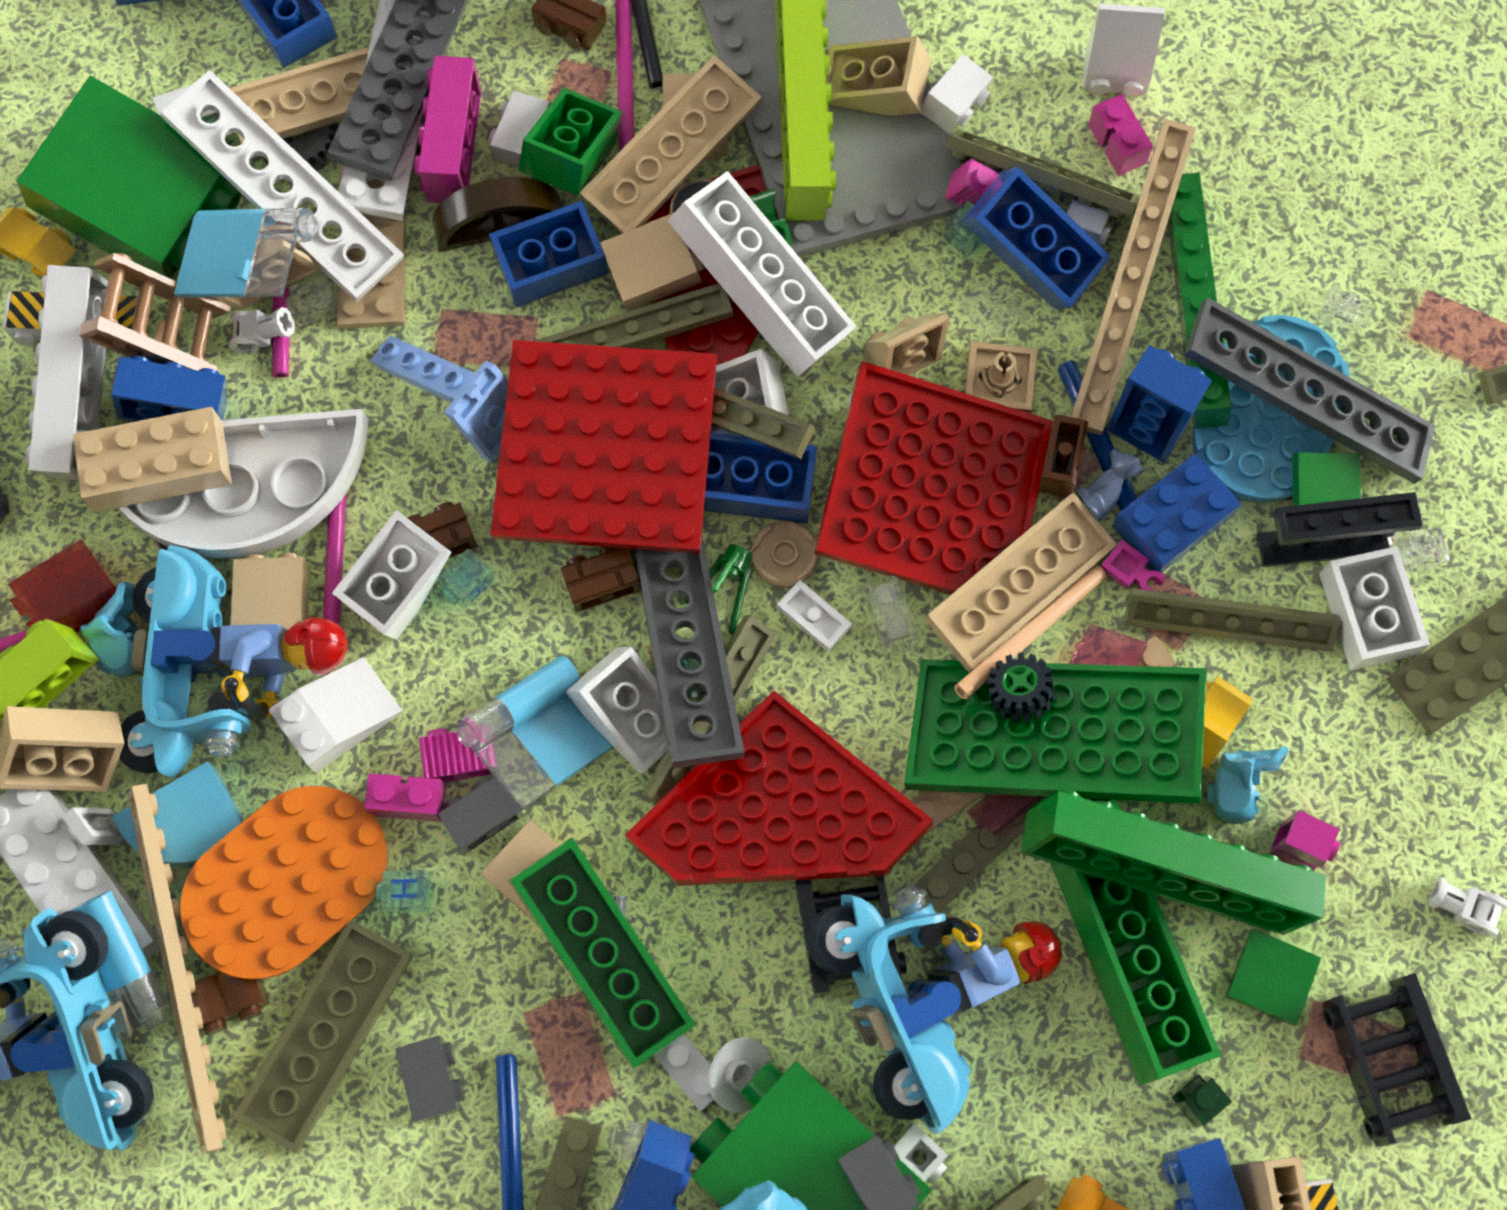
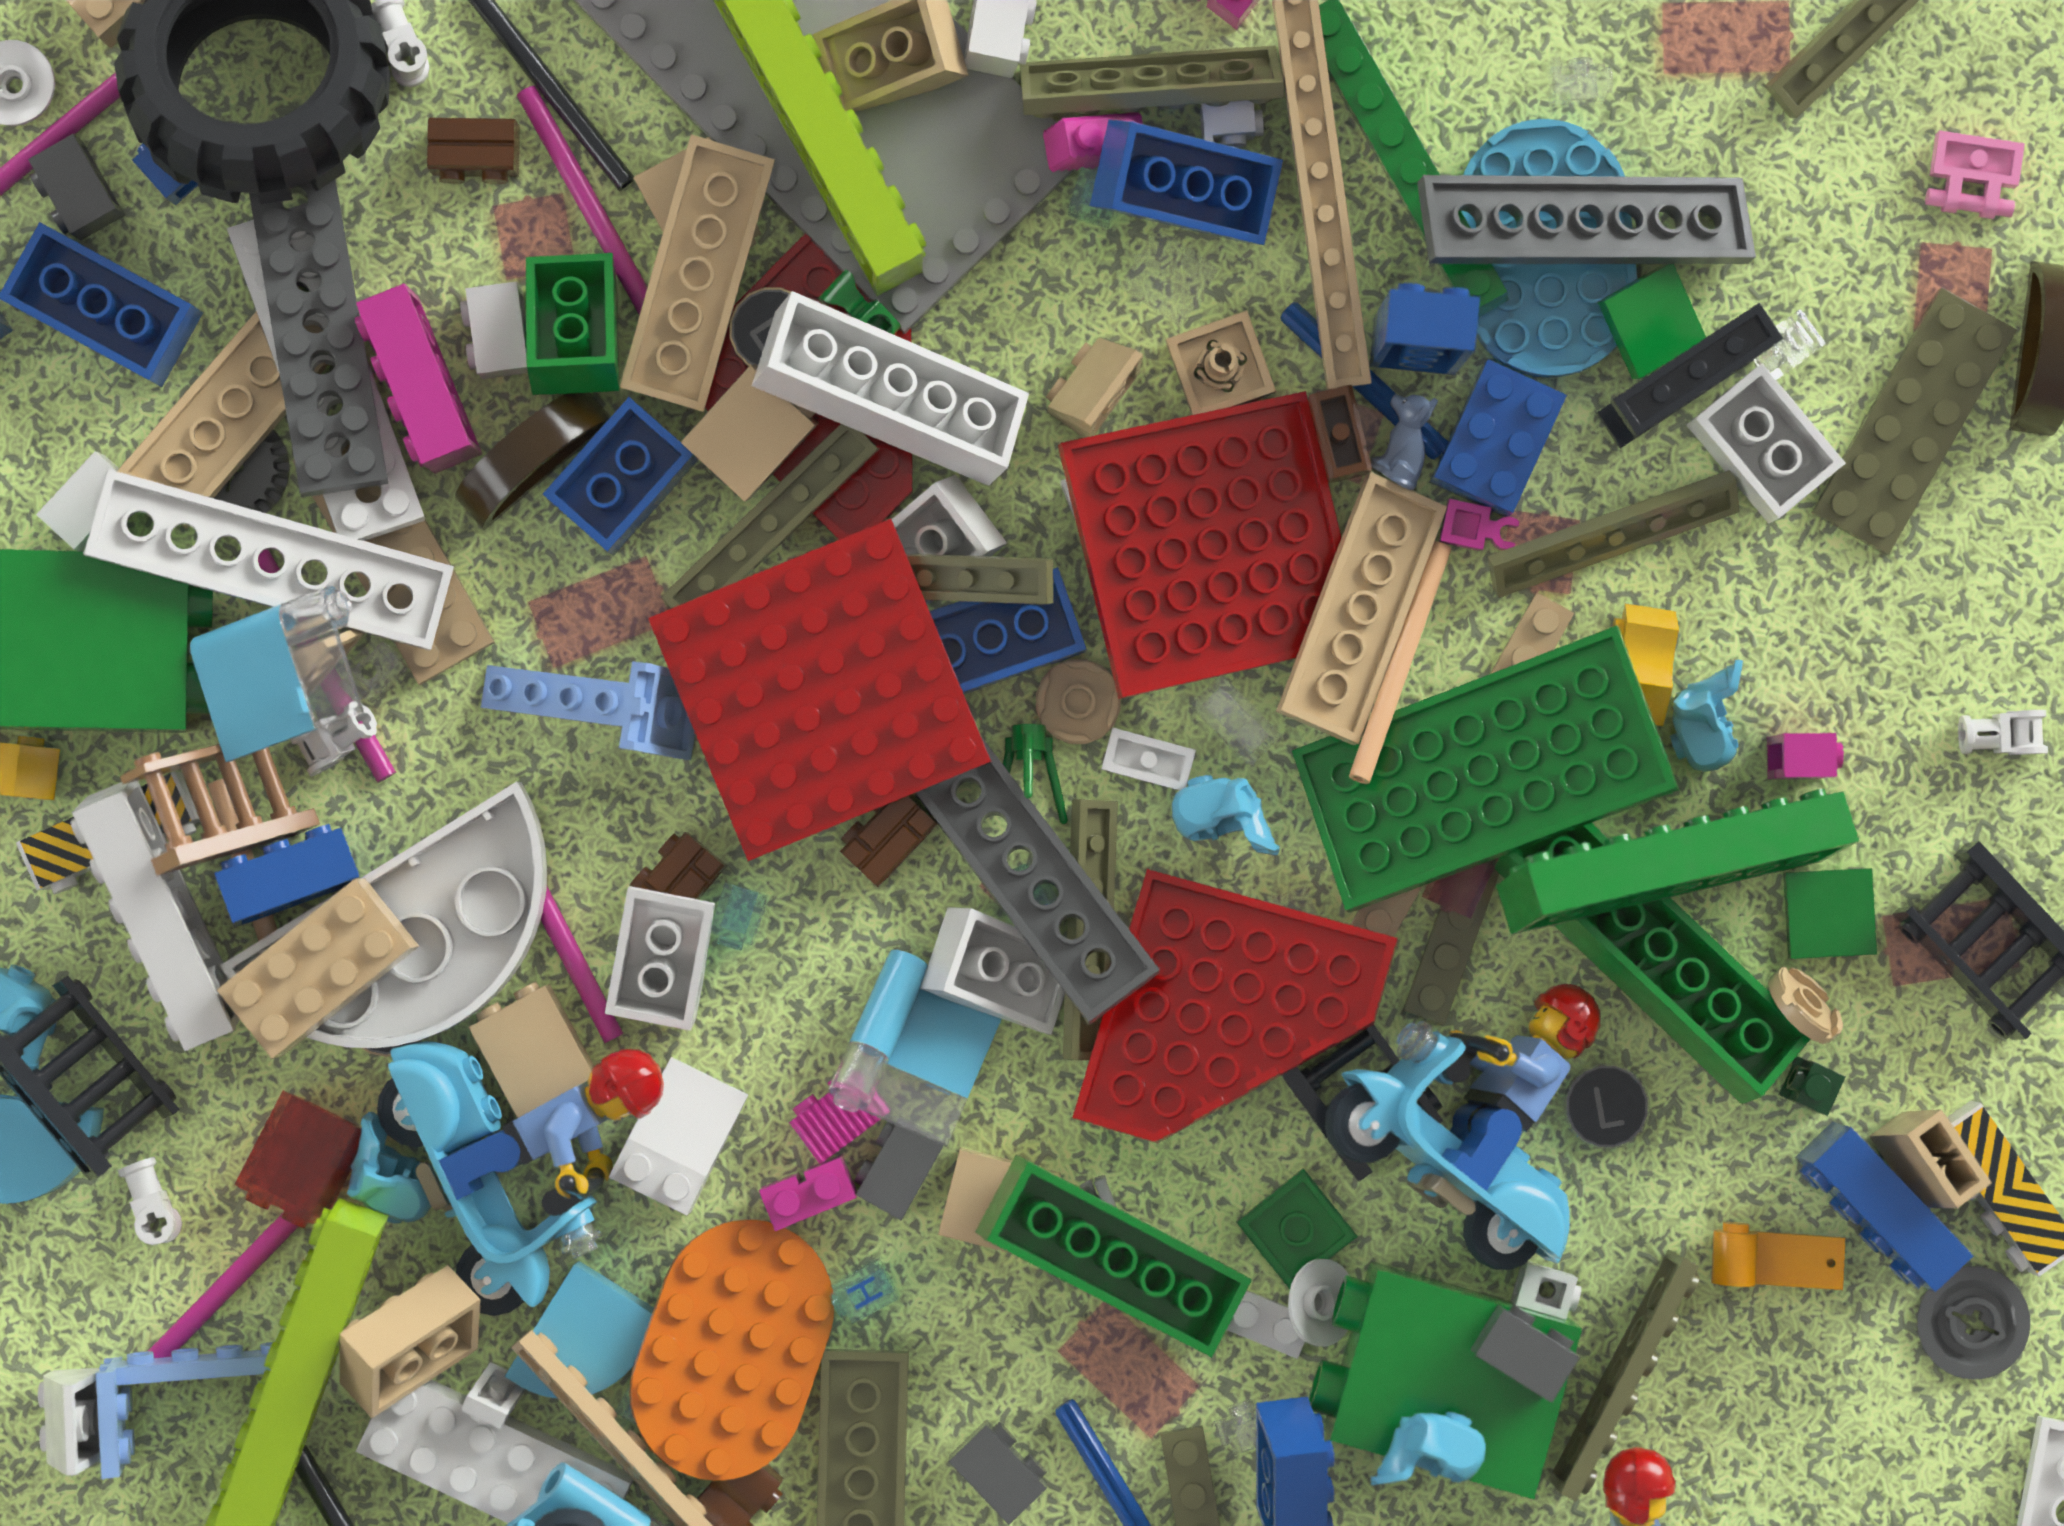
camera: 25 degrees left, 15 degrees up
(751, 1008) = (1296, 1226): none -> green tile
(848, 671) = (1221, 807): none -> medium azure head
(1016, 675) = (1408, 736): black wheel -> none
(1032, 1037) = (1606, 1106): none -> black tile
(1107, 647) = (1492, 642): clear pink piece -> none
(1224, 1031) = (1805, 1004): none -> tan tile

